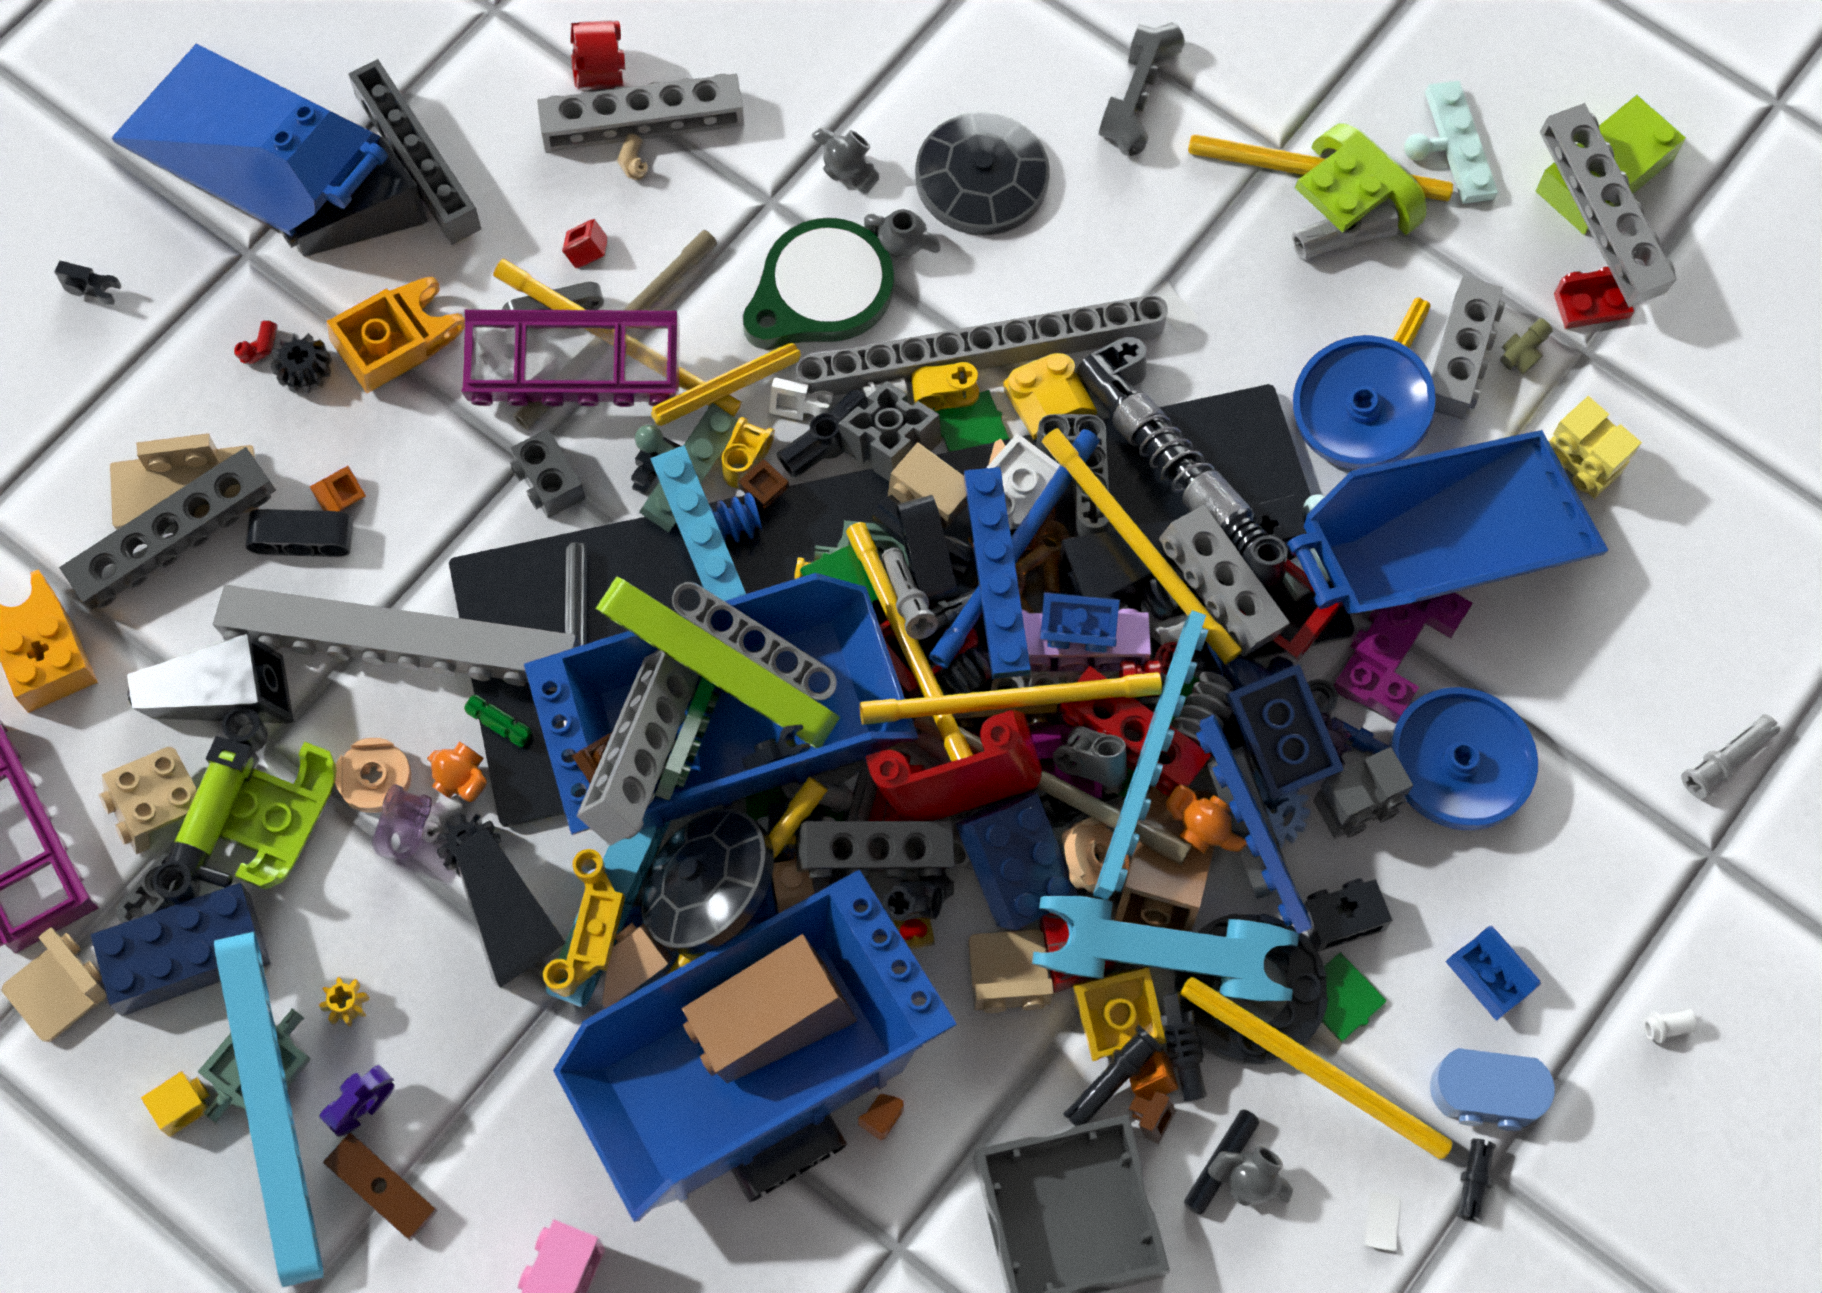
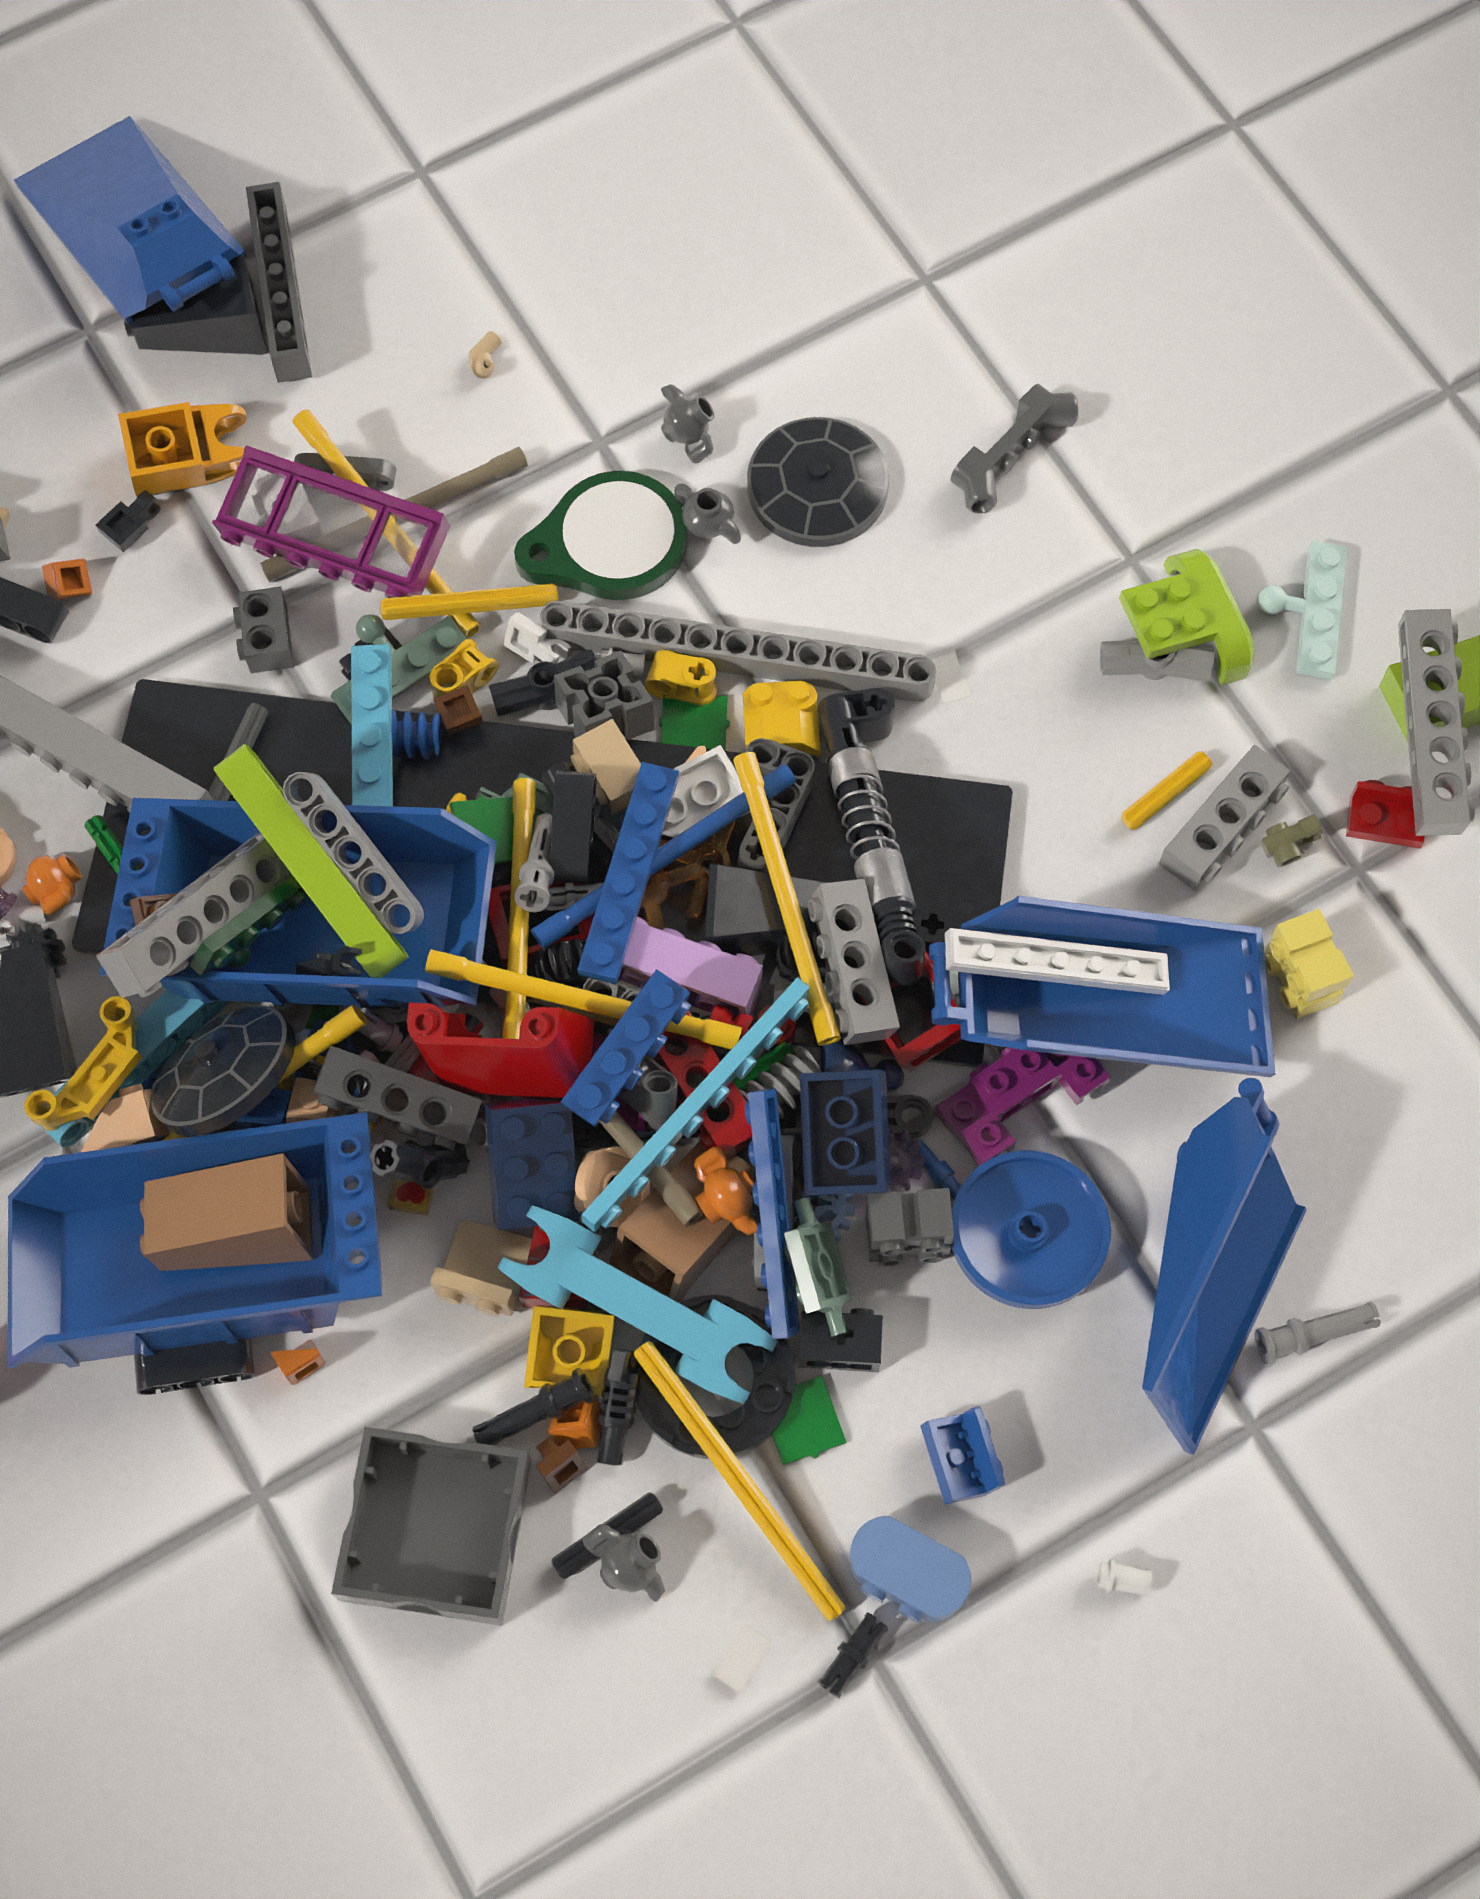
camera: 25 degrees right, 0 degrees up
(252, 352) = (58, 421): red arm -> none
(313, 360) = (86, 447): black gear -> none
(371, 420) = (126, 524): none -> black plate
(585, 243) = (401, 422): red slope -> none
(596, 55) = (489, 244): red brick -> none
(655, 121) = (524, 325): light grey brick -> none
(1073, 727) = (626, 1047): none -> blue brick
(1079, 621) = (684, 949): blue bracket -> none
(1290, 161) = (1139, 574): yellow axle -> none
(1300, 848) = (818, 1267): none -> sand green plate
(1364, 401) = (1093, 836): blue dish -> none
(1394, 518) = (1056, 961): none -> white tile
(1633, 709) = (1219, 1259): none -> blue windscreen

